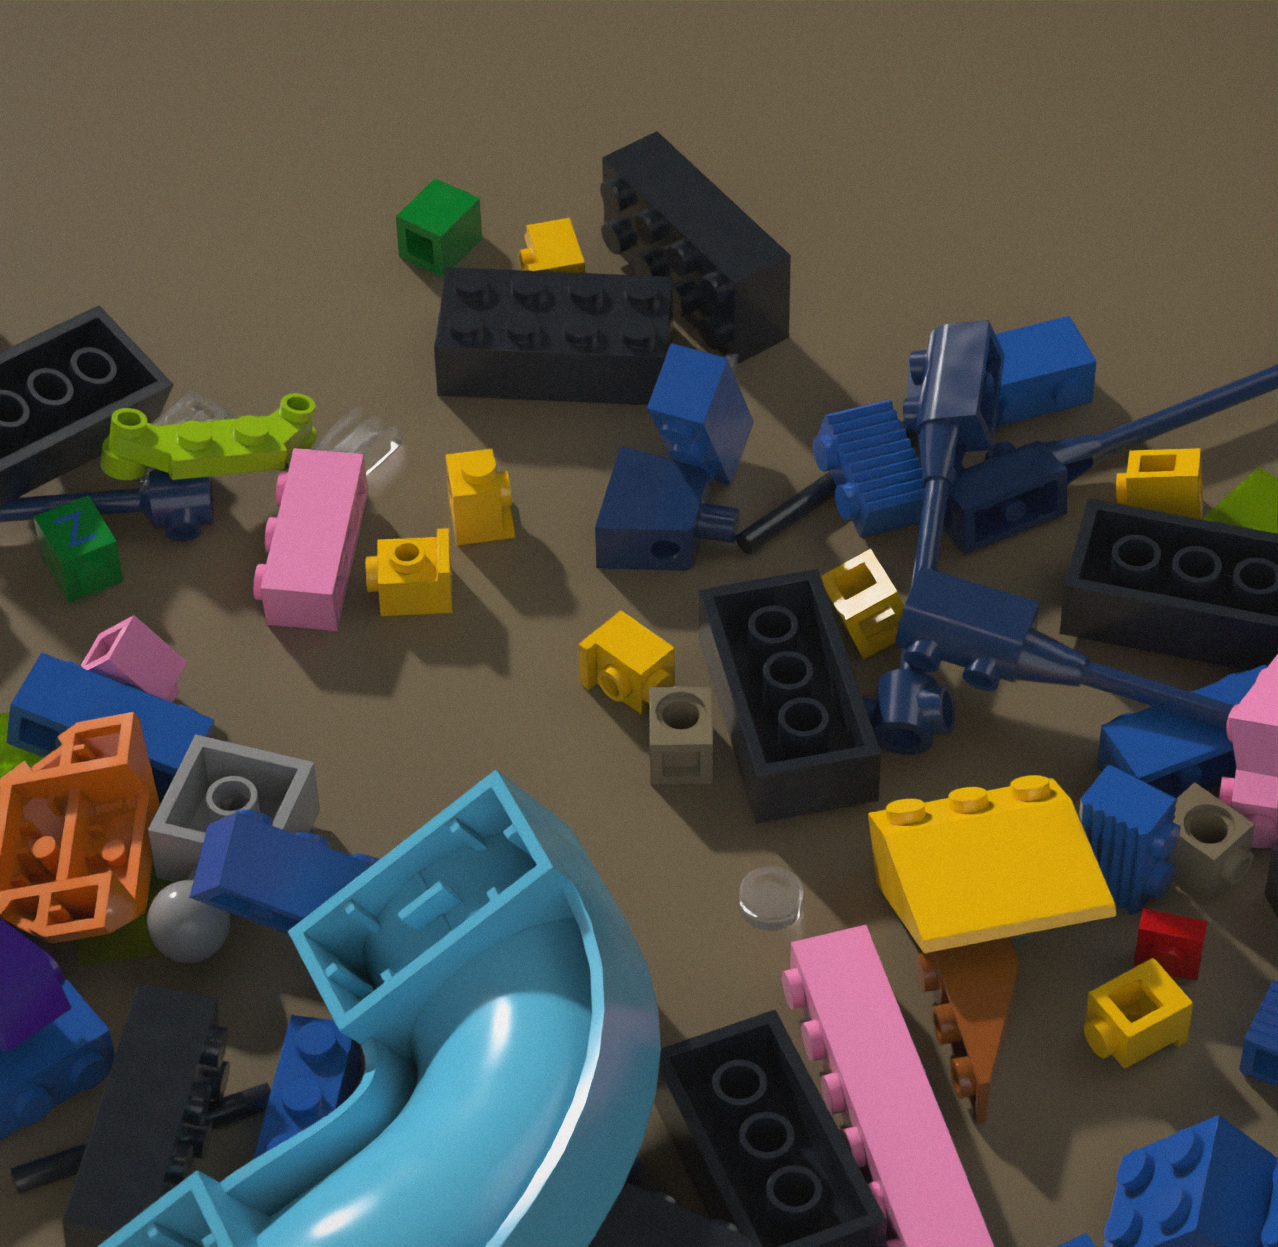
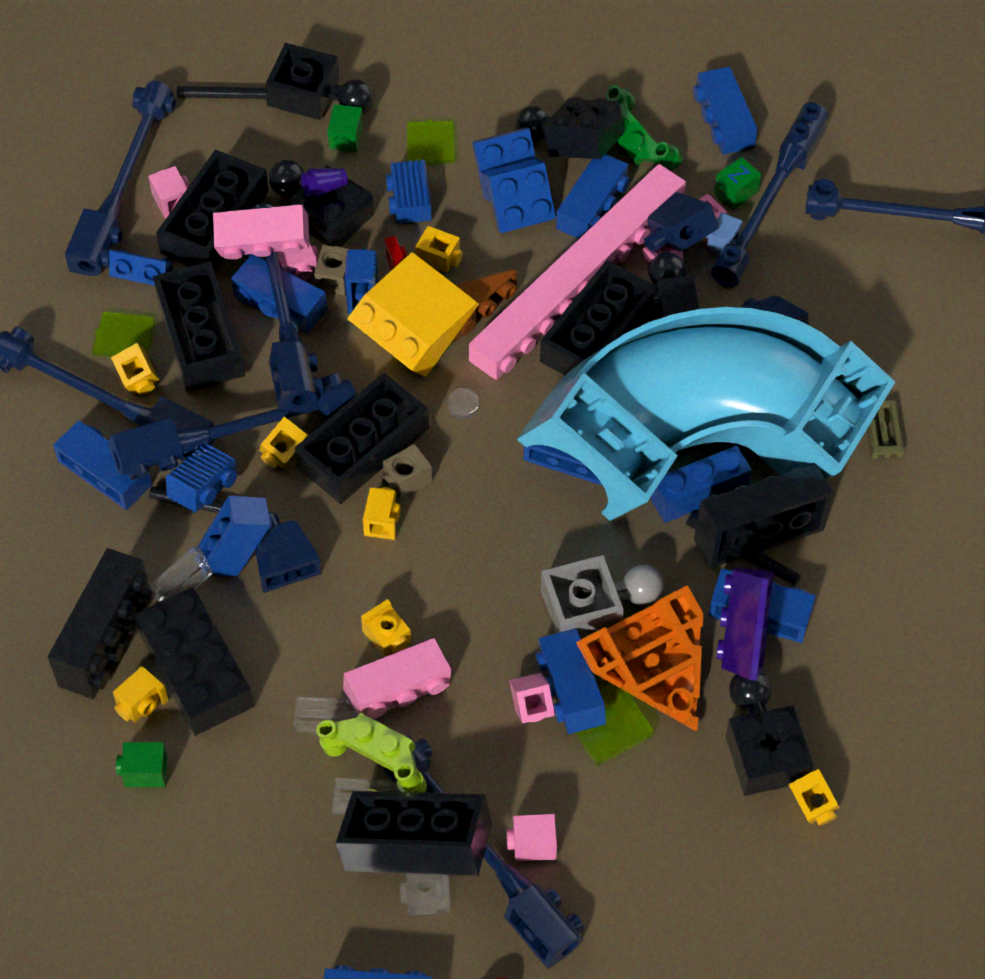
camera: 125 degrees left, 10 degrees up
(78, 549) = (472, 775): green brick -> none
(269, 871) = (610, 534): blue brick -> none
(478, 498) = (321, 624): yellow brick -> none

